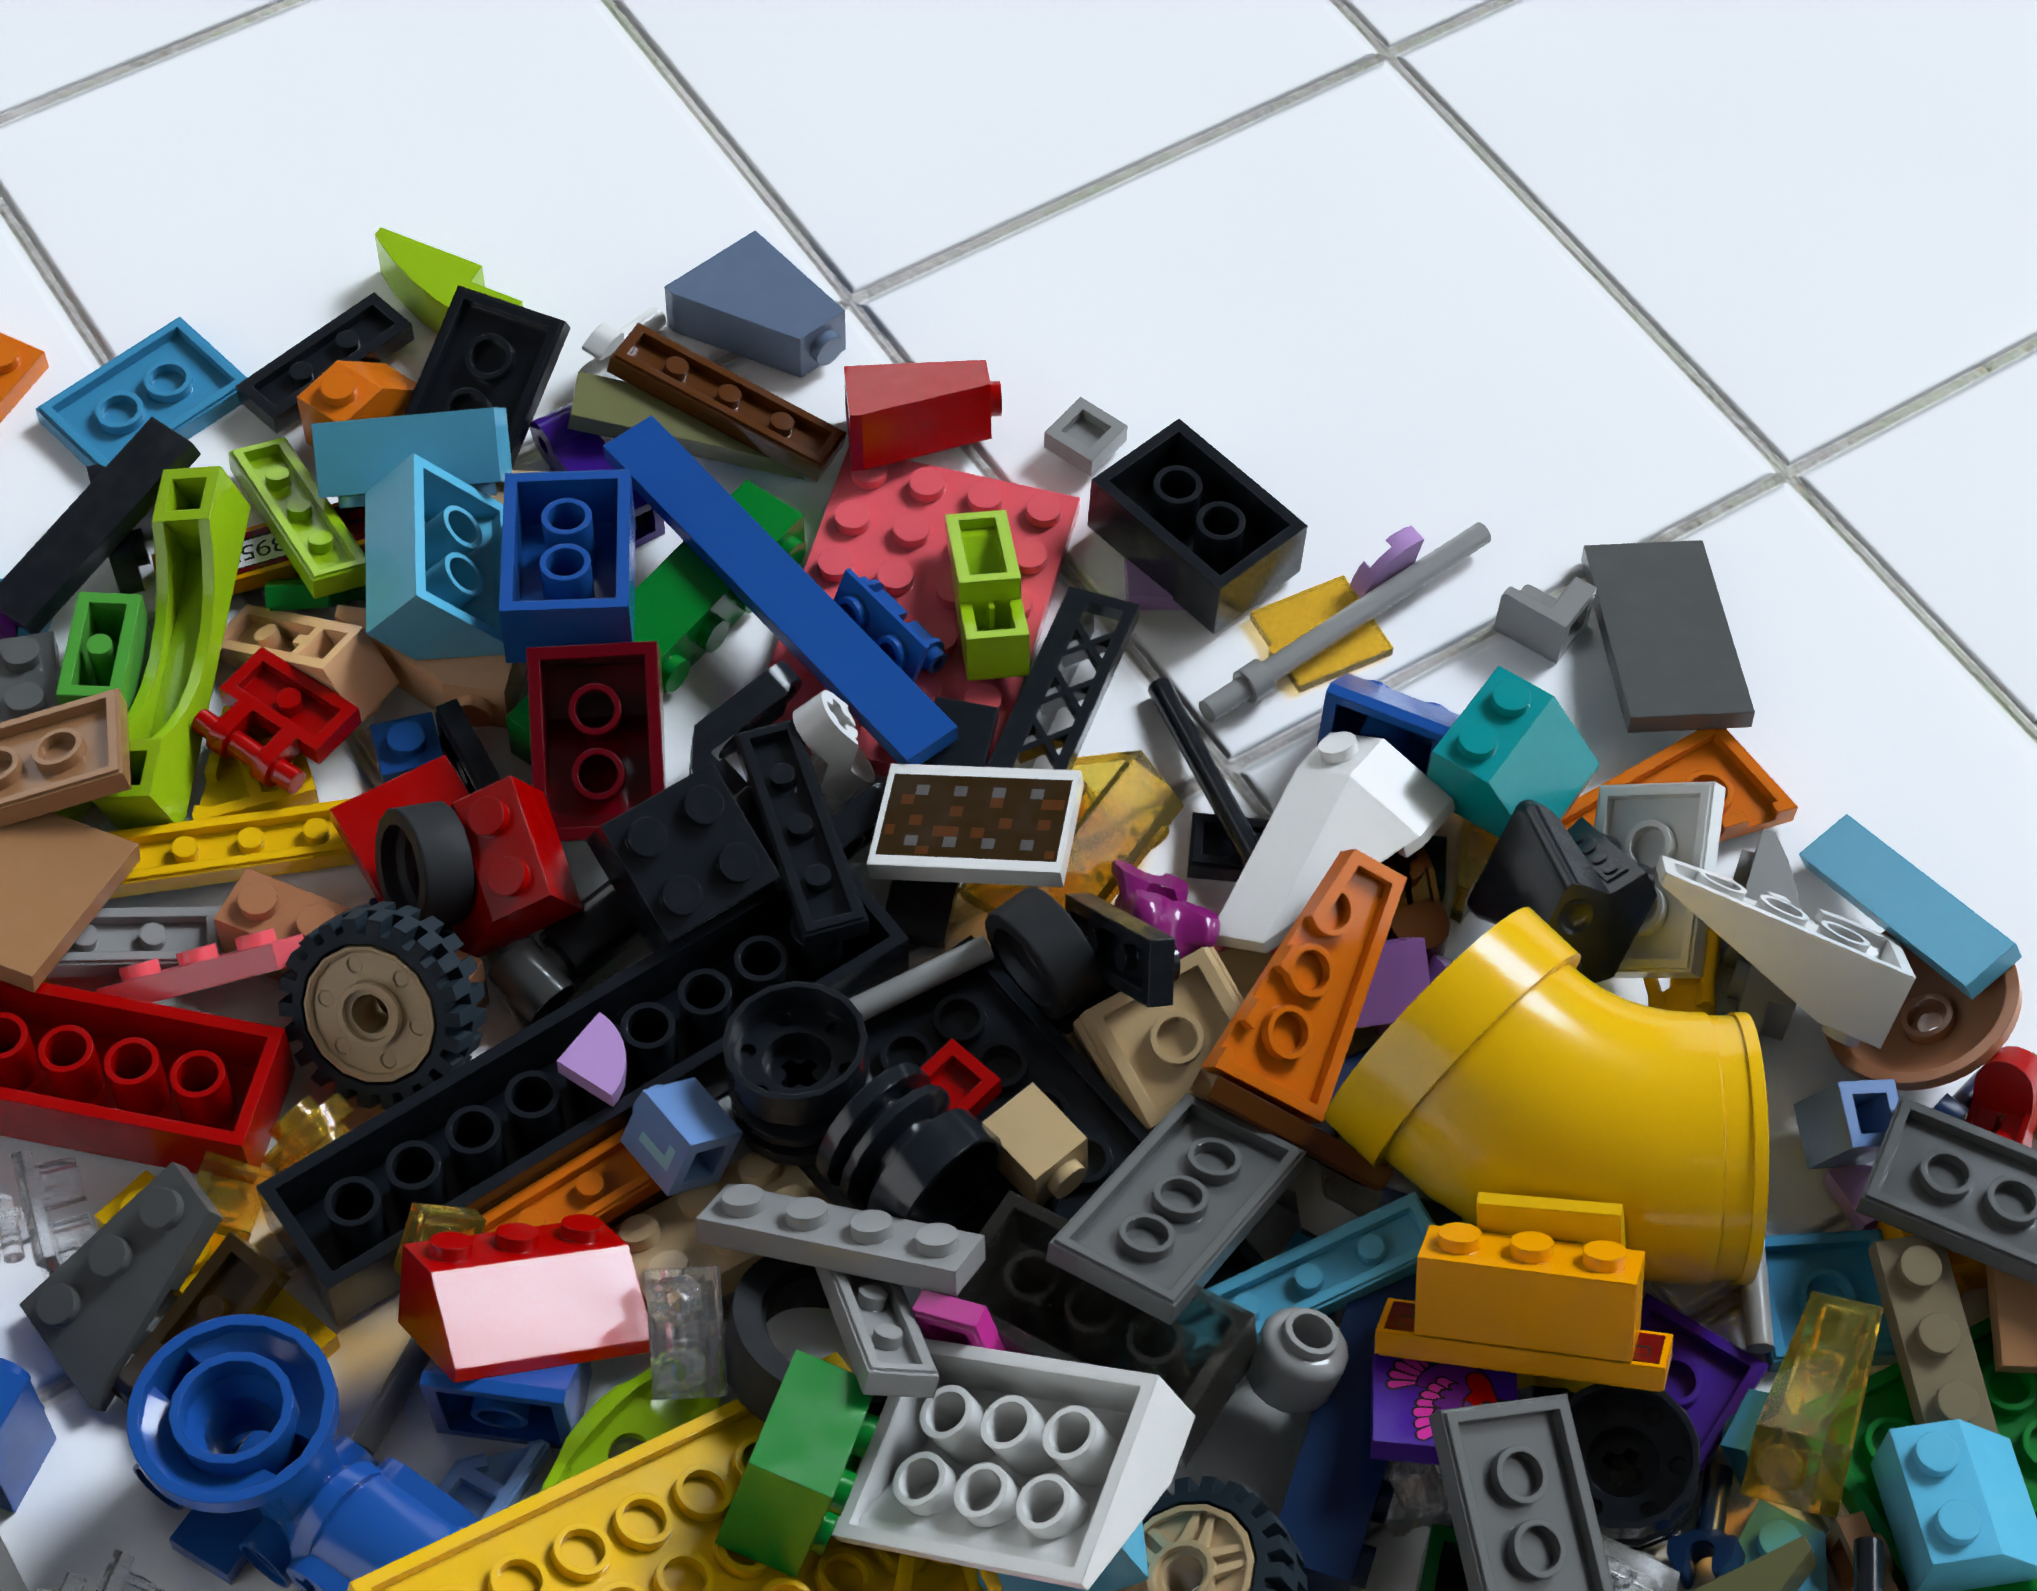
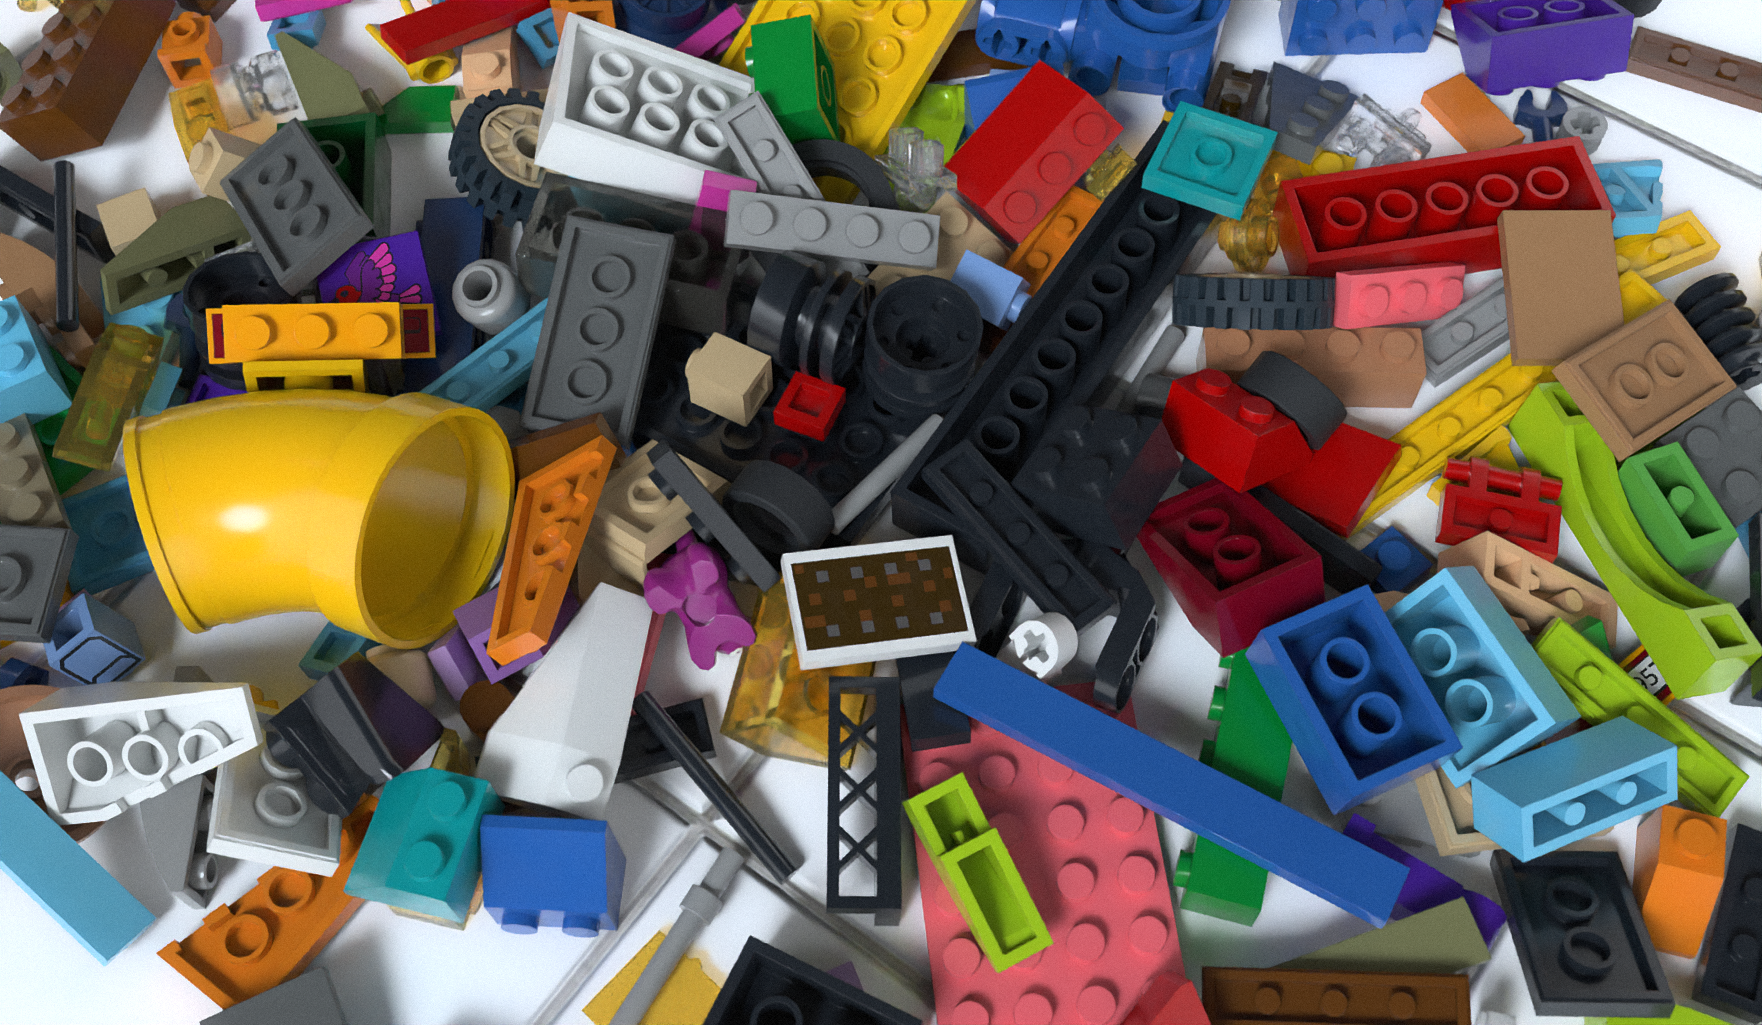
camera: 165 degrees right, 5 degrees up
(320, 1177) = (1209, 160): none -> teal plate
(597, 1060) = (1071, 306): lavender tile -> none
(885, 624) = (1070, 803): blue hinge -> none

